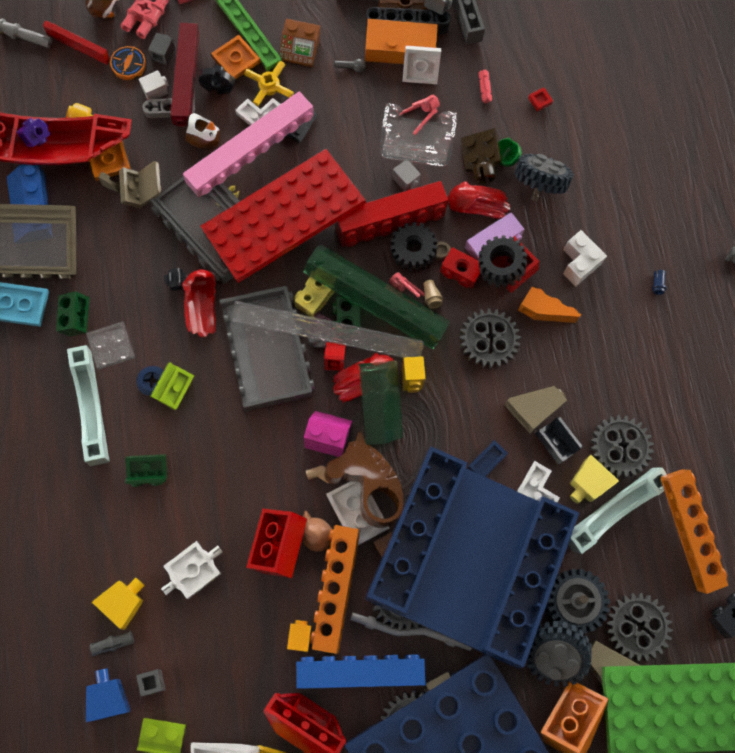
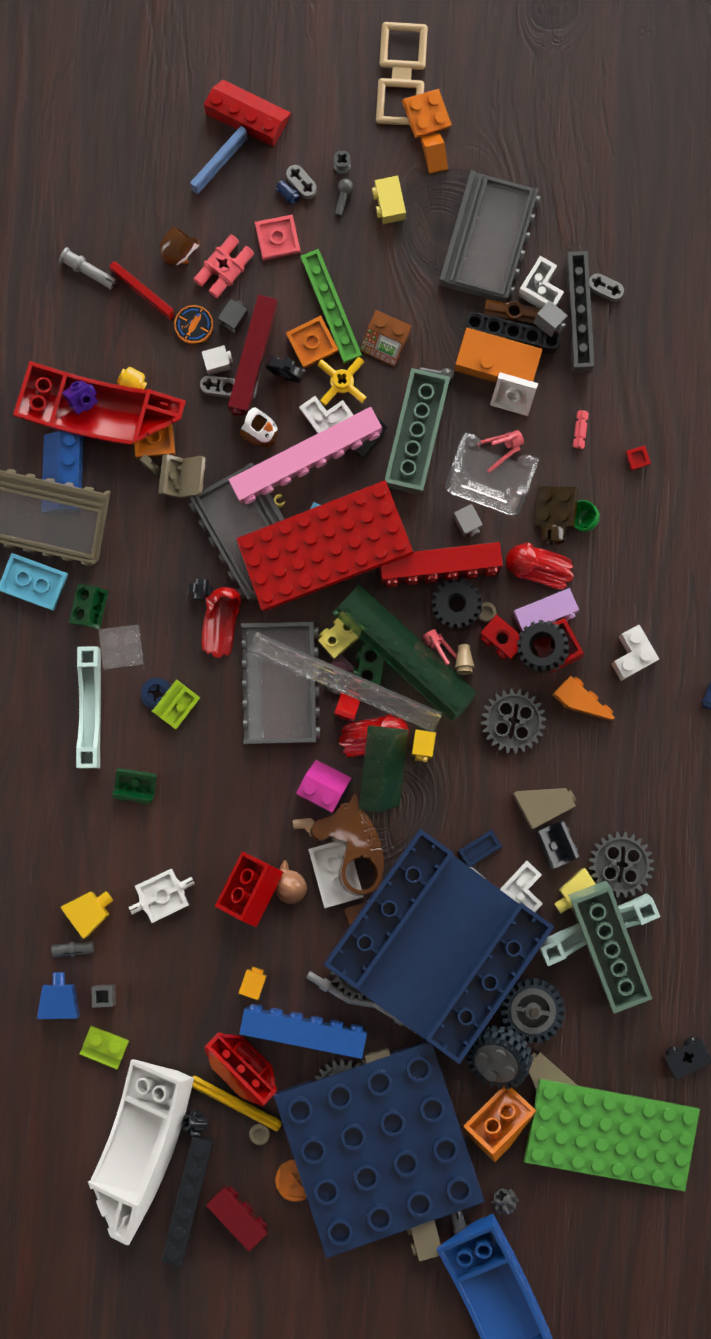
camera: 20 degrees right, 10 degrees up
(340, 600) = (283, 996): orange brick -> none
(344, 109) = (416, 431): none -> sand green brick
(543, 174) = (615, 552): black wheel -> none
(635, 522) = (610, 946): none -> sand green brick
(647, 611) = (574, 1060): dark grey gear -> none
(685, 524) = (658, 918): orange brick -> none

